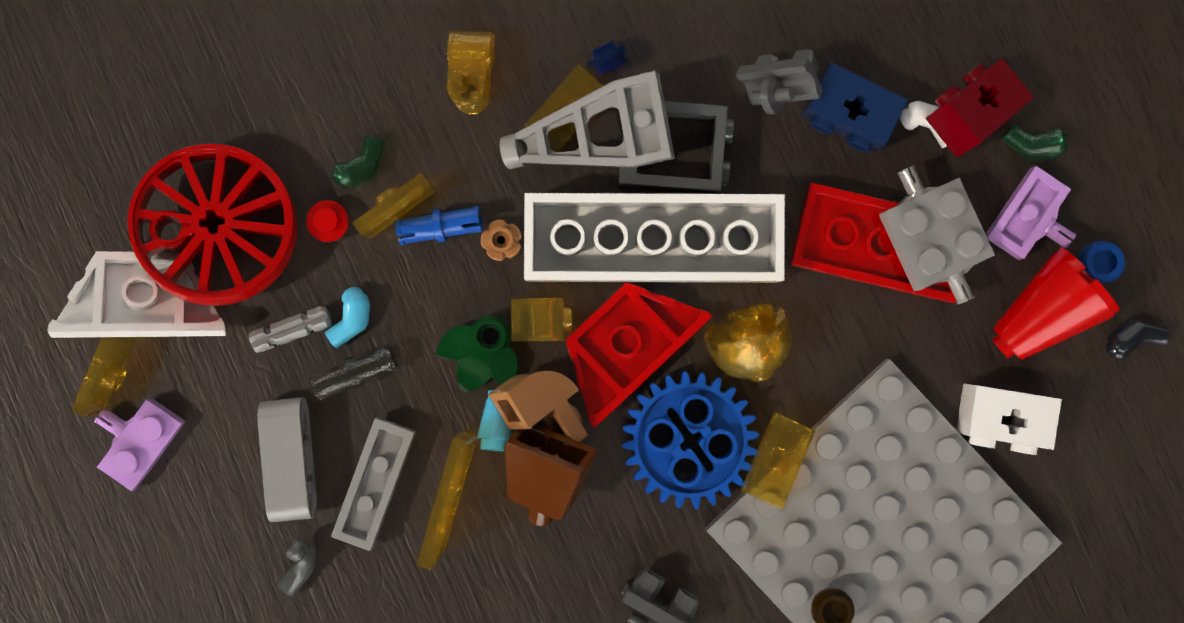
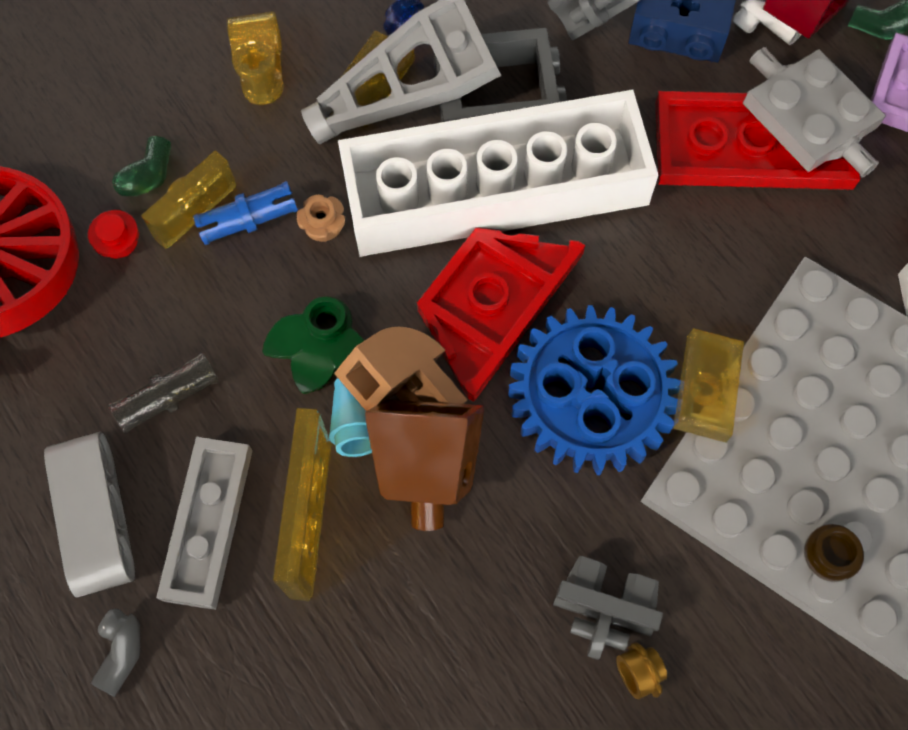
camera: 10 degrees left, 20 degrees down
(290, 329) = (79, 360): light grey axle -> none
(355, 317) = (158, 333): medium azure arm -> none
(540, 319) = (382, 287): clear yellow brick -> none
(750, 344) = (640, 265): clear yellow cylinder -> none

